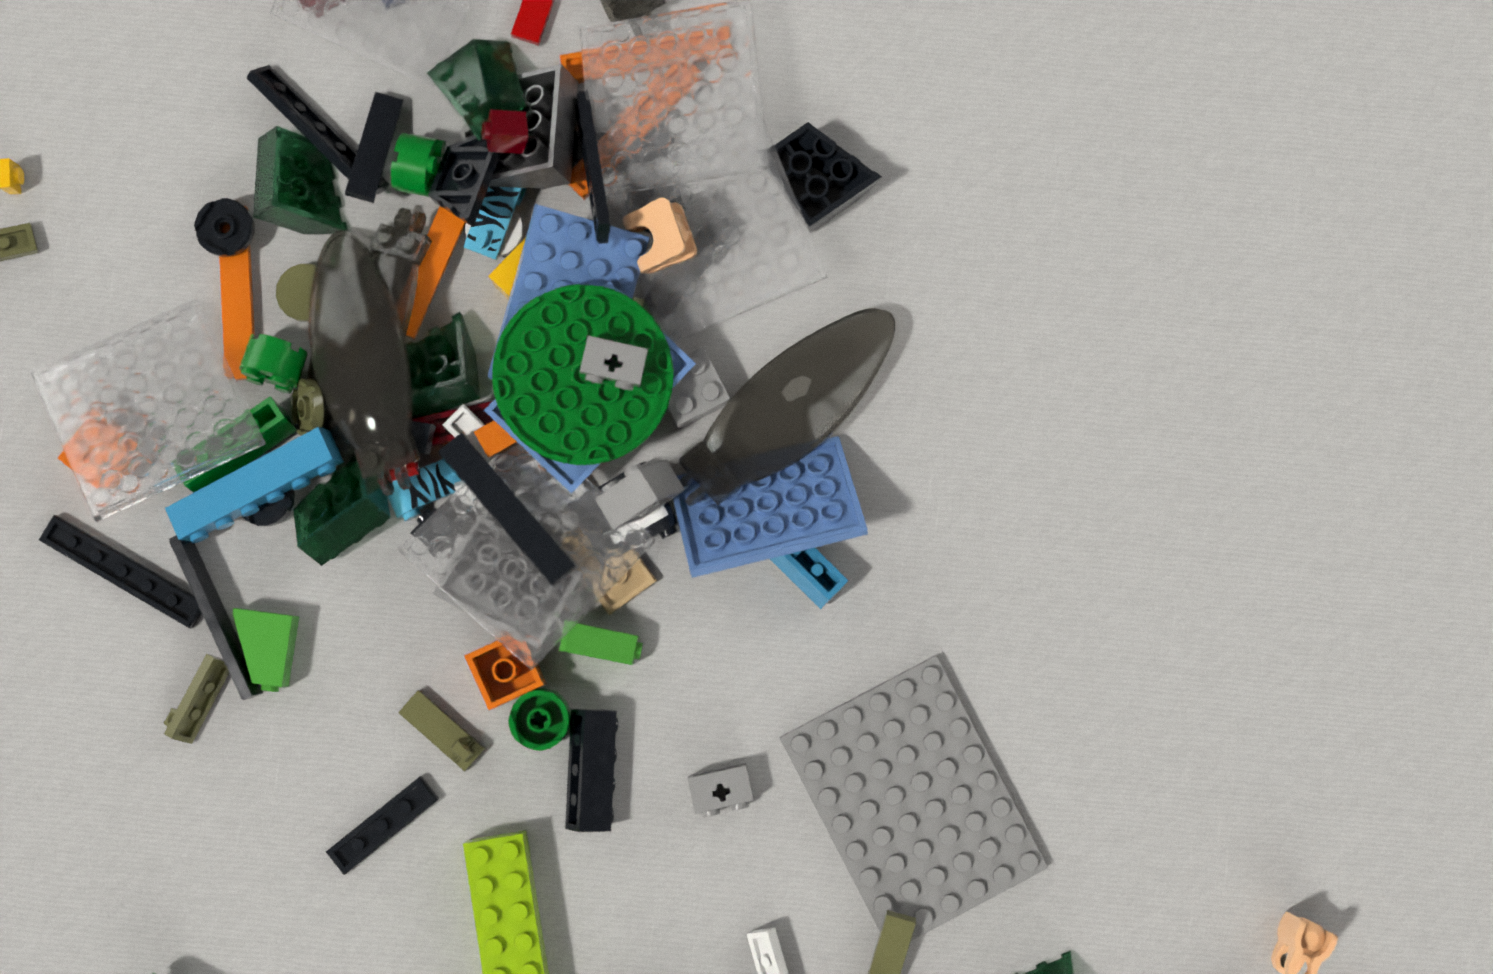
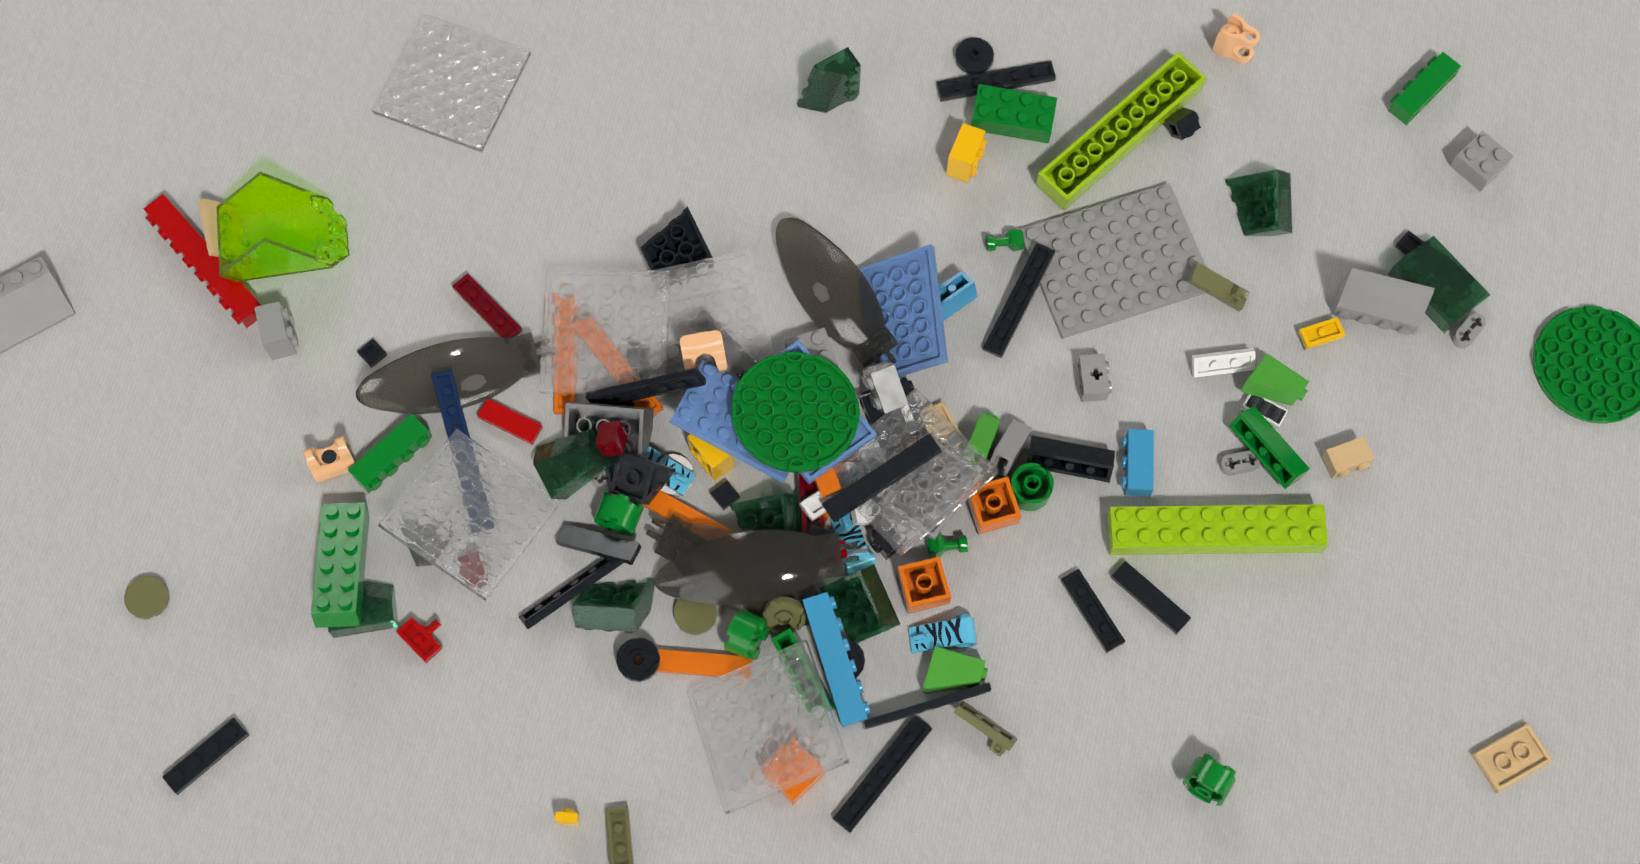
camera: 80 degrees left, 15 degrees down
(316, 627) = (944, 634): none -> medium azure door
(378, 589) = (923, 585): none -> orange brick
(411, 903) = (1150, 597): none -> black tile
(441, 730) = (1029, 560): olive hinge -> none
(443, 611) = (938, 546): none -> green leg
(475, 304) = (725, 495): none -> black tile
(591, 681) = (1009, 448): none -> light grey slope
(602, 350) = (784, 392): light grey brick -> none
(602, 866) = (1138, 462): none -> dark azure brick
(823, 669) = (1019, 300): none -> black tile
(918, 648) = (1014, 240): none -> green leg
(1039, 562) = (966, 153): none -> yellow brick
(1117, 350) = (832, 82): none -> clear green wedge
(1120, 624) = (1014, 113): none -> green brick
(1120, 789) = (1120, 131): none -> lime brick
(1147, 879) = (1183, 123): none -> black brick
(1174, 593) = (1005, 78): none -> black tile
(1195, 556) = (974, 64): none -> black plate

